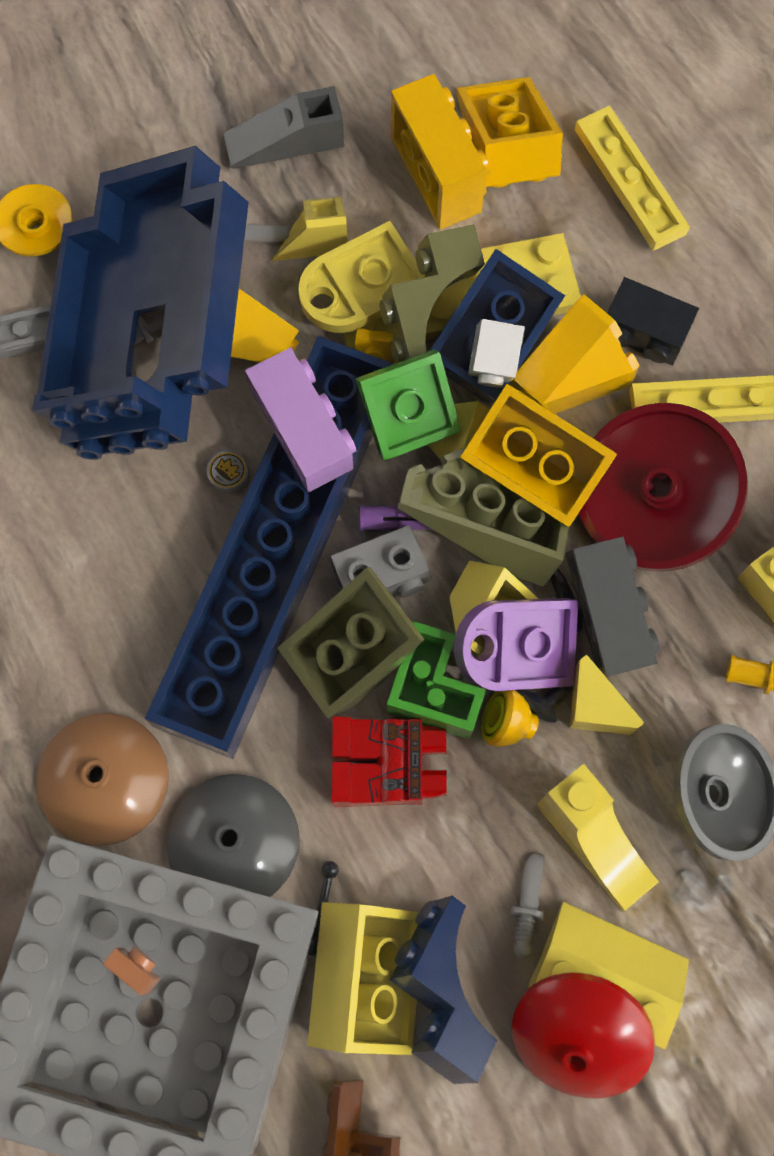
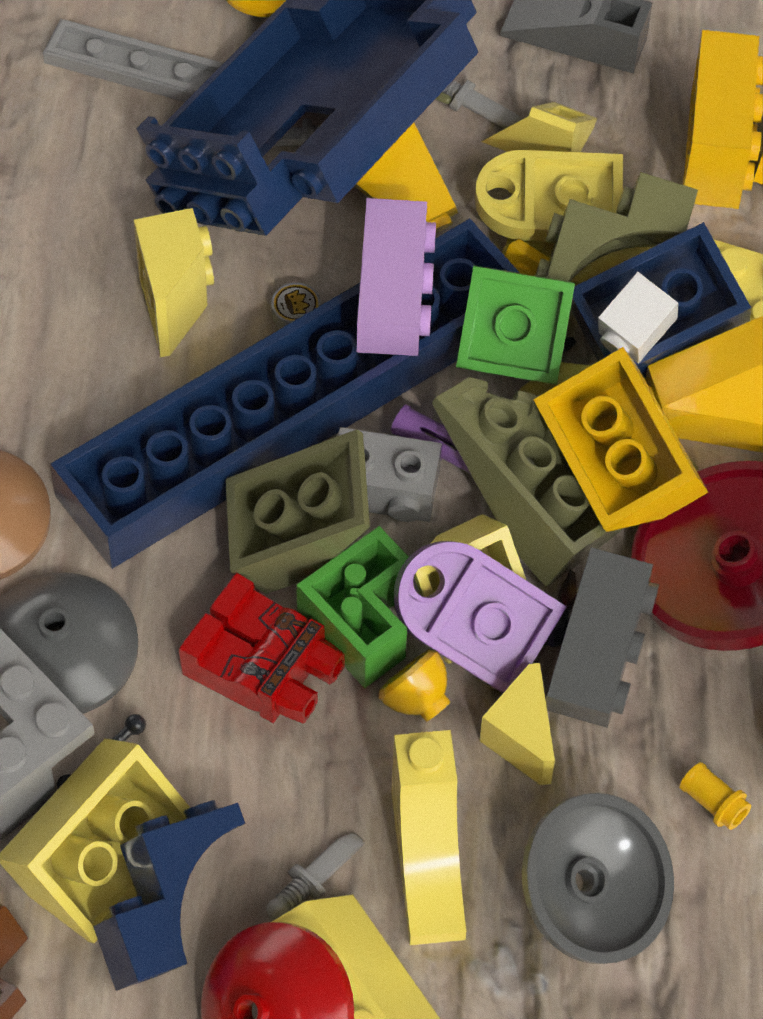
camera: 30 degrees right, 15 degrees down
(127, 503) = (173, 273): none -> light yellow slope
(545, 706) = (462, 700): black bar -> none

